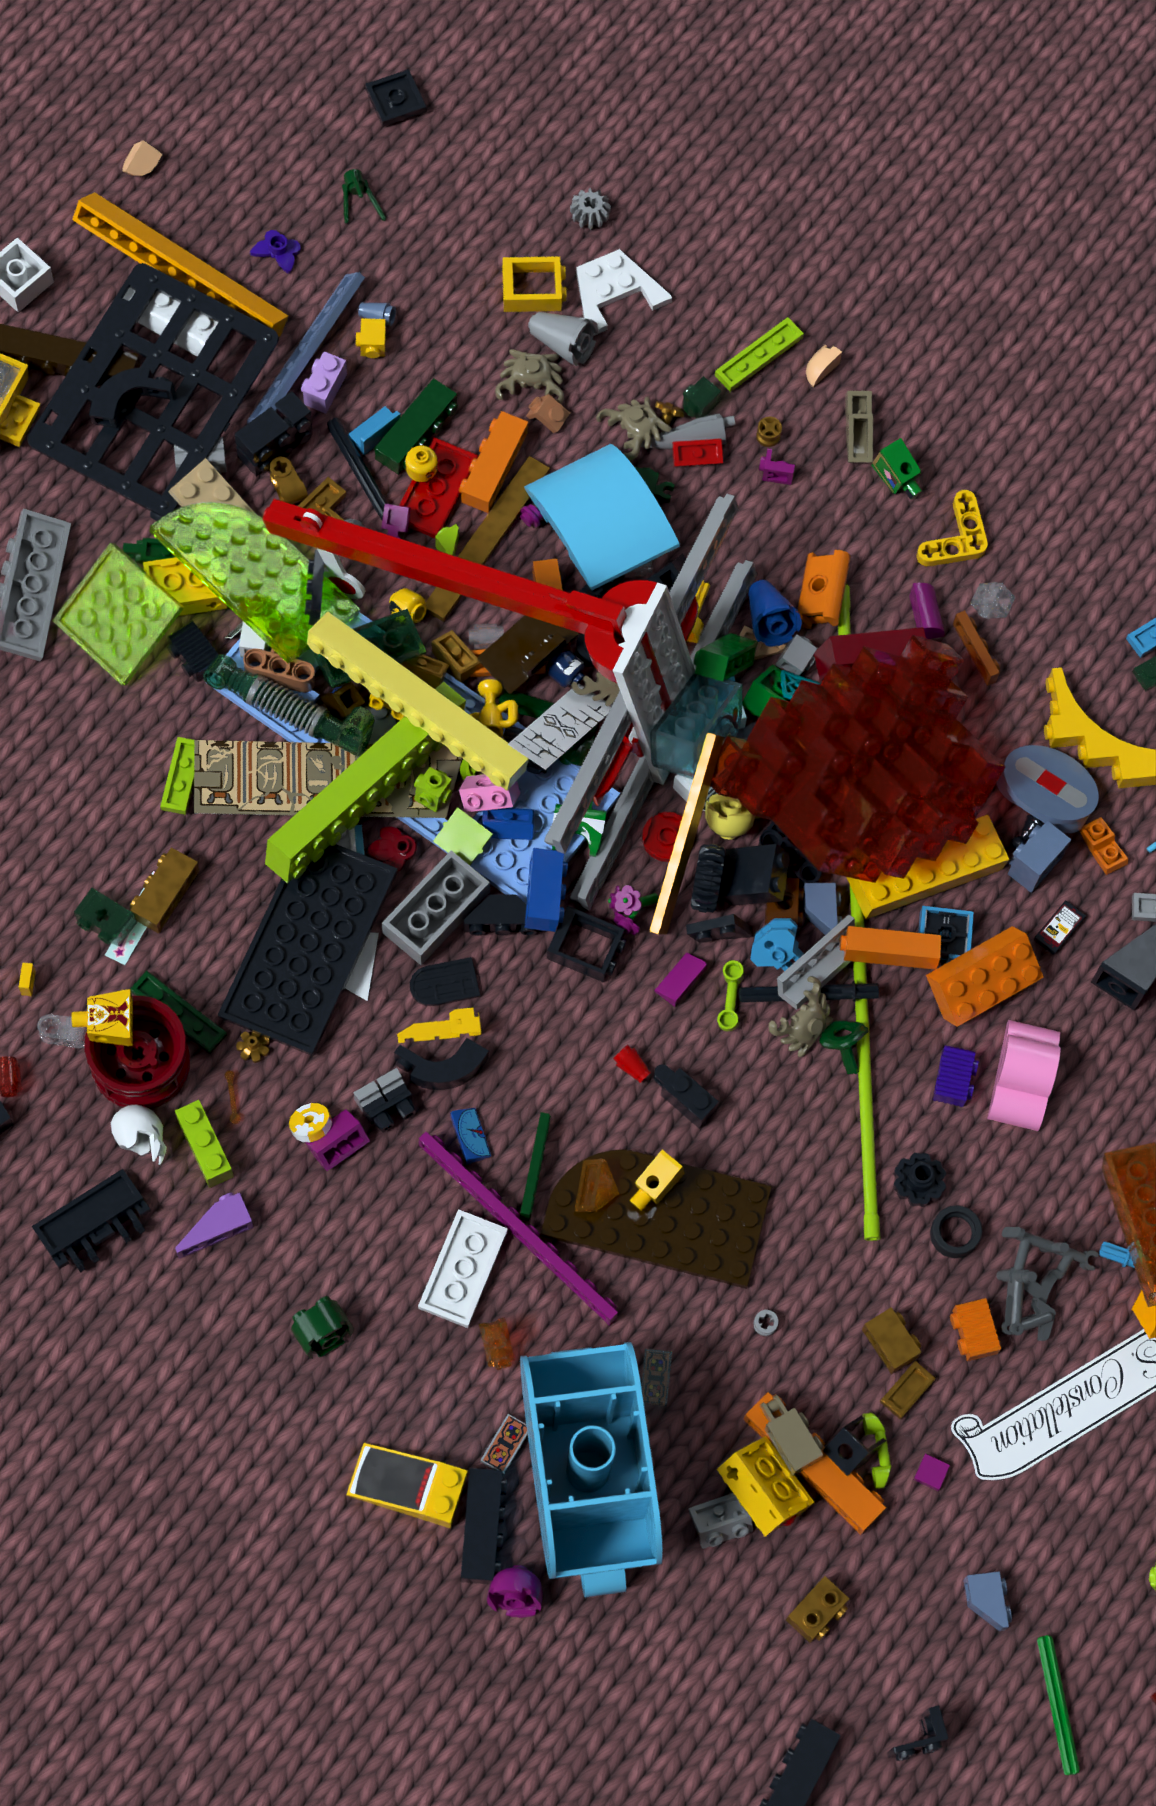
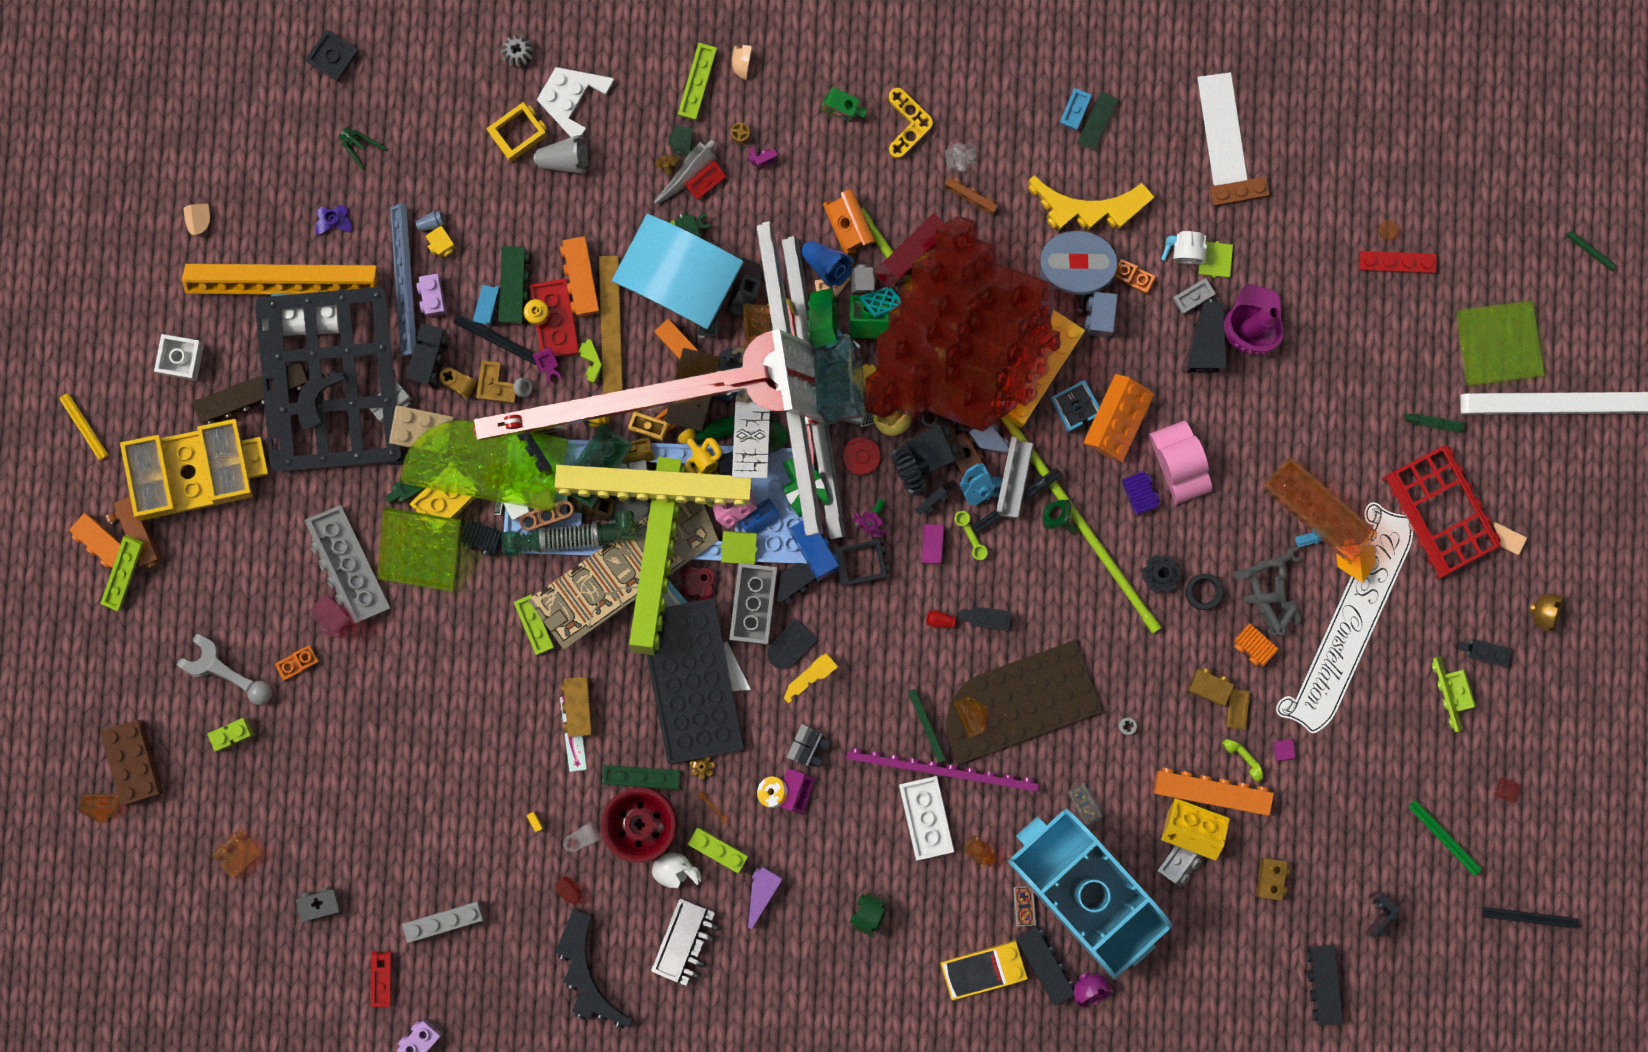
camera: 30 degrees left, 15 degrees up
(98, 906) = (543, 746): clear green brick -> none
(108, 1018) = (611, 823): yellow torso -> none
(432, 789) = (699, 536): lime brick -> none
(443, 1074) = (839, 693): black arch -> none
(470, 1135) = (873, 732): slope -> none
(531, 516) = (629, 298): magenta plate -> none
(533, 371) = (560, 194): dark tan animal -> none
(548, 412) = (589, 217): nougat bracket -> none
(639, 423) = (652, 184): dark tan animal -> none
(663, 1170) = (1008, 679): yellow torso -> none
(686, 833) = (878, 454): tile -> none
(791, 1436) = (1193, 791): dark tan brick -> none
(807, 1022) = (1029, 522): dark tan animal -> none
(859, 426) = (796, 90): dark tan slope -> none
(860, 1453) = (1223, 770): black piece -> none
(891, 947) = (1051, 441): orange brick -> none
(926, 610) = (923, 191): magenta brick -> none
(986, 1598) = (1363, 803): sand blue slope -> none
(1059, 927) = (1141, 350): tile -> none

